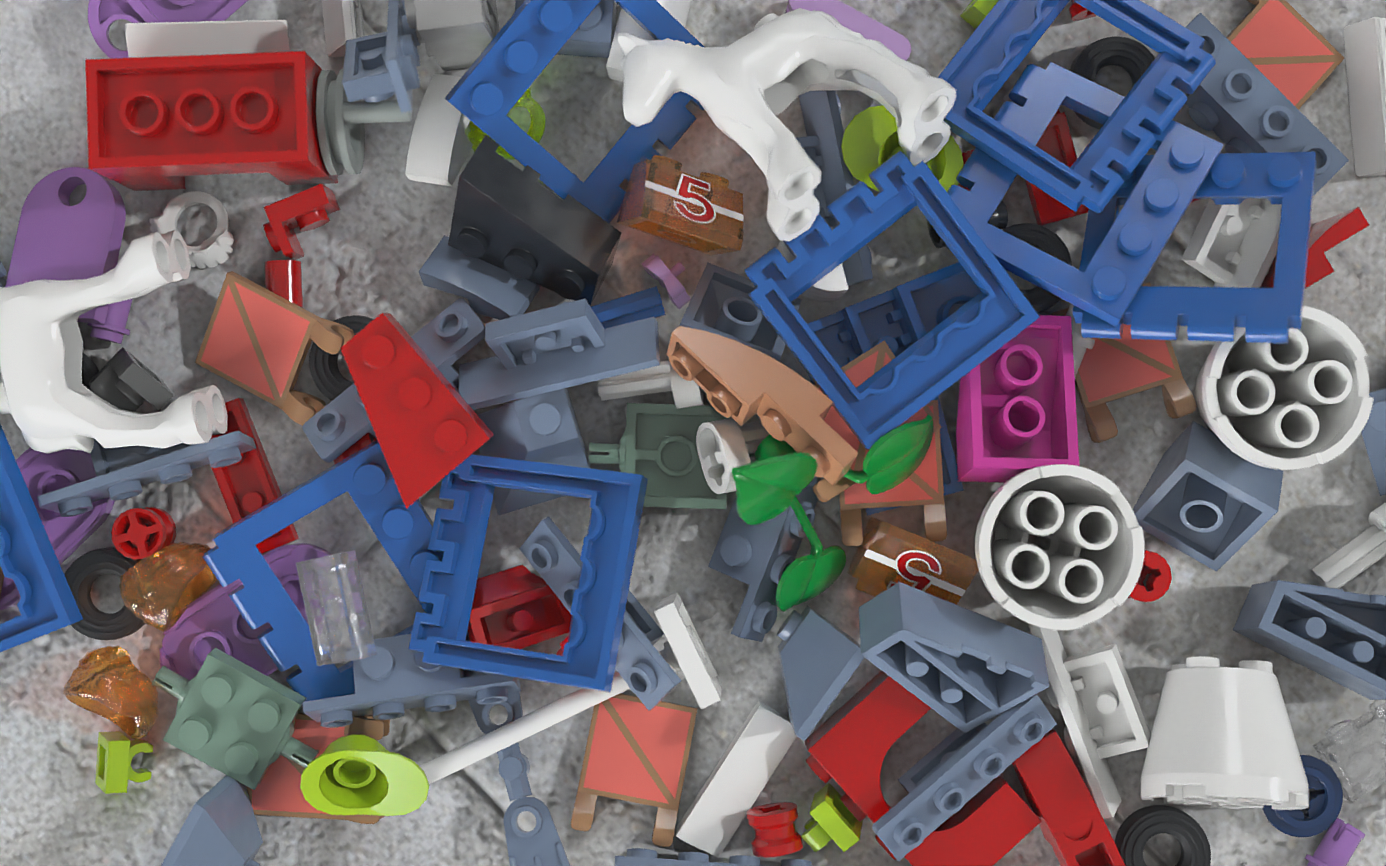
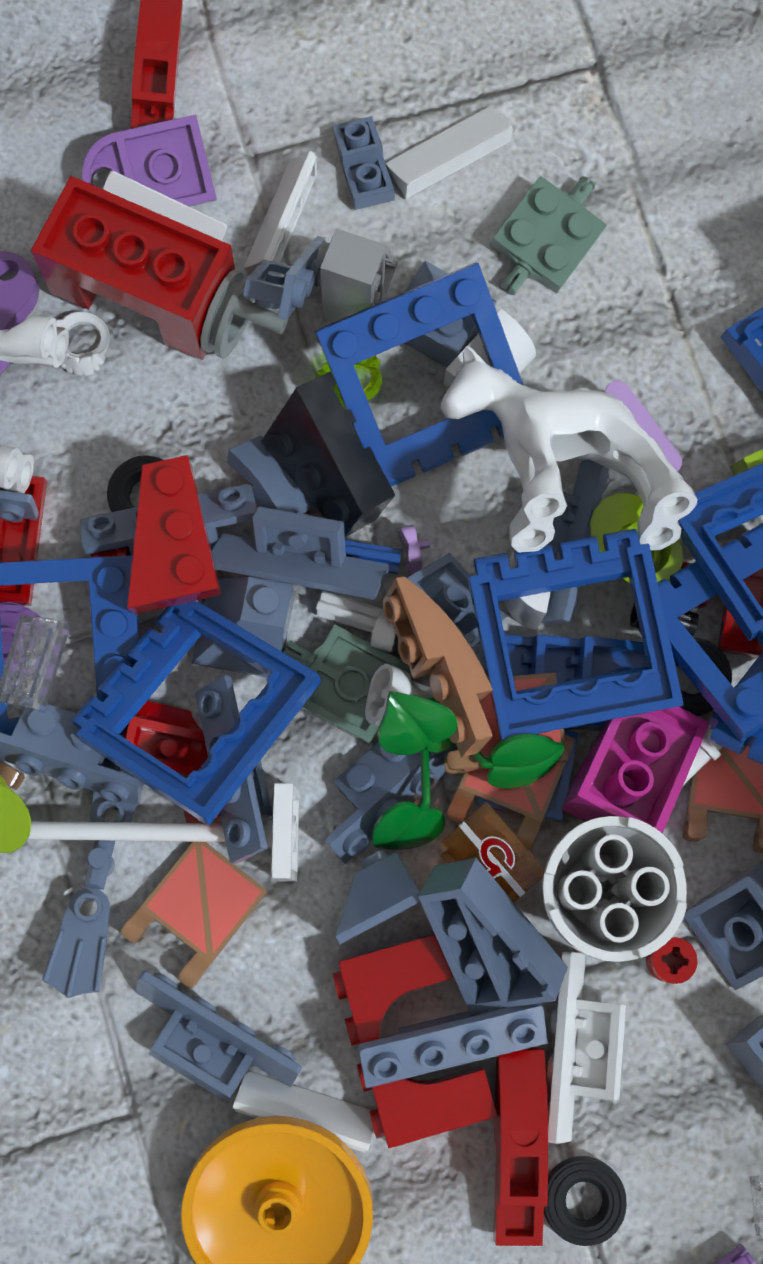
camera: 25 degrees right, 10 degrees down
(263, 342) = (83, 445): flag -> none
(285, 279) = (122, 412): red hinge -> none
(303, 210) = (166, 365): red bracket -> none
(438, 136) = (293, 361): white slope -> none
(683, 207) = (450, 499): clear orange slope -> none
(736, 780) = (270, 964): white slope -> none
(774, 829) = (279, 1017): red wheel -> none
(831, 821) = (329, 1033): lime tile -> none
(1223, 740) = (675, 1126): white cone -> none
(1324, 802) = (731, 1229): dark blue gear -> none

